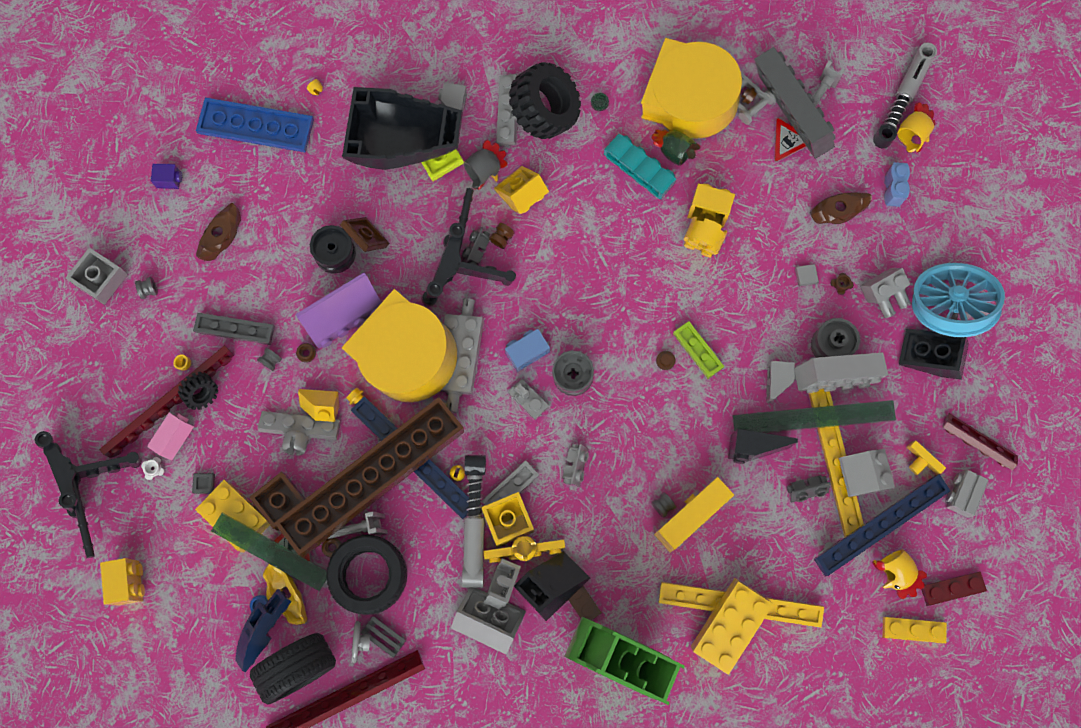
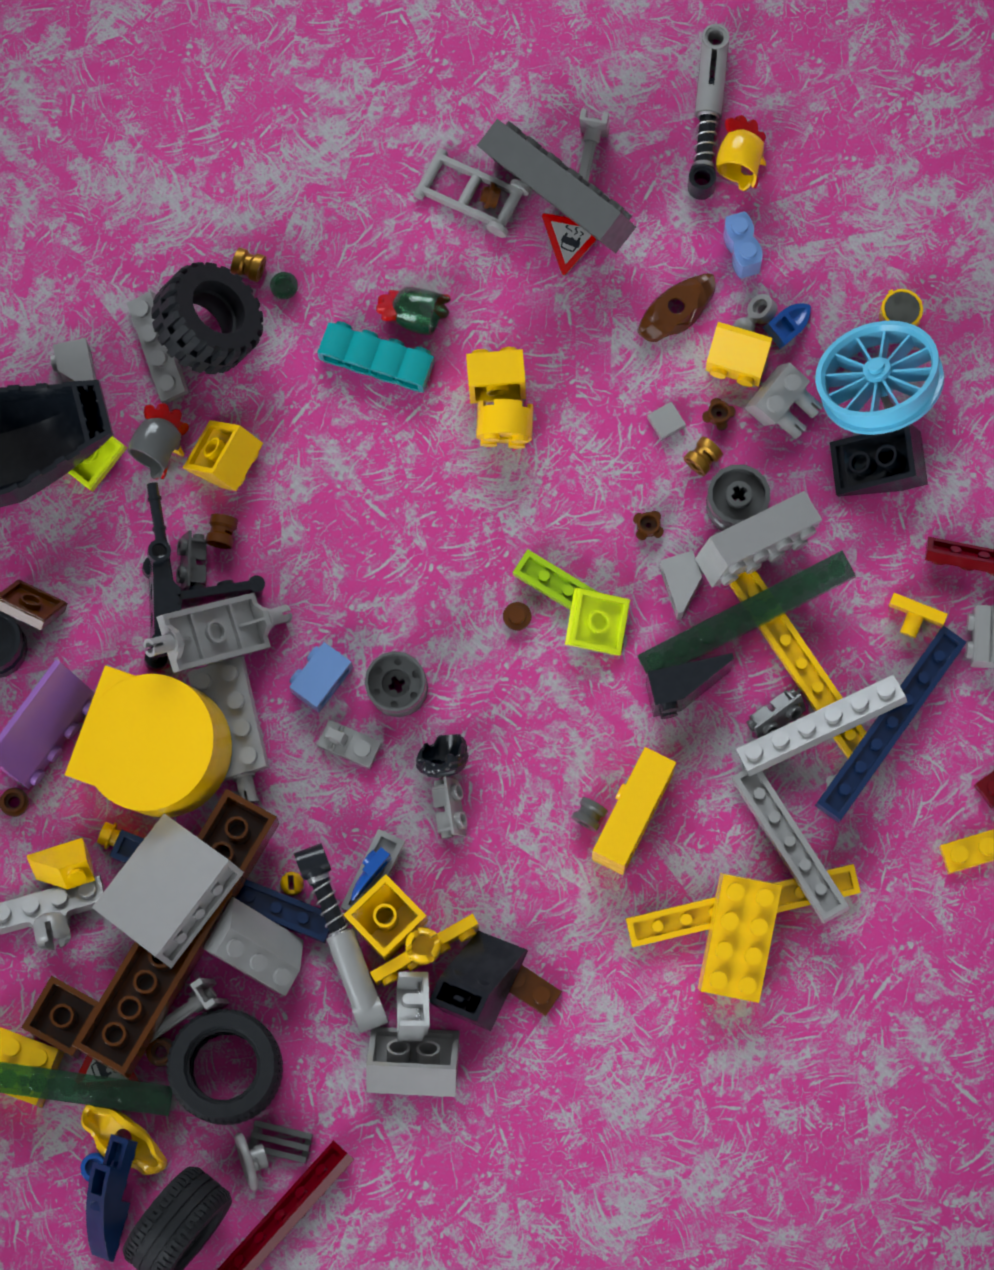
camera: 15 degrees left, 0 degrees up
(375, 447) = (168, 890): none -> light grey panel
(418, 505) = (256, 947): none -> light grey slope
(471, 295) = (215, 631): none -> light grey plate
(513, 482) = (374, 864): none -> blue plate
(583, 80) = (248, 264): none -> pearl gold wheel
(584, 431) = (444, 757): none -> black hair
(623, 660) = (608, 1036): bright green brick -> none
(693, 88) = (407, 219): yellow brick -> none
(715, 384) = (597, 621): none -> neon yellow plate
(775, 332) = (648, 517): none -> reddish brown plate
(788, 577) = (791, 845): none -> light grey plate
(822, 306) = (703, 456): none -> pearl gold wheel
(837, 507) = (821, 725): none -> light grey plate
(866, 472) = (844, 662): light grey slope -> none
(870, 250) = (738, 355): none -> yellow slope
(892, 229) = (760, 310): none -> light grey plate
(901, 573) = (940, 778): yellow piece -> none
(907, 244) = (788, 323): none -> blue plate
(985, 259) = (901, 306): none -> pearl dark grey piece

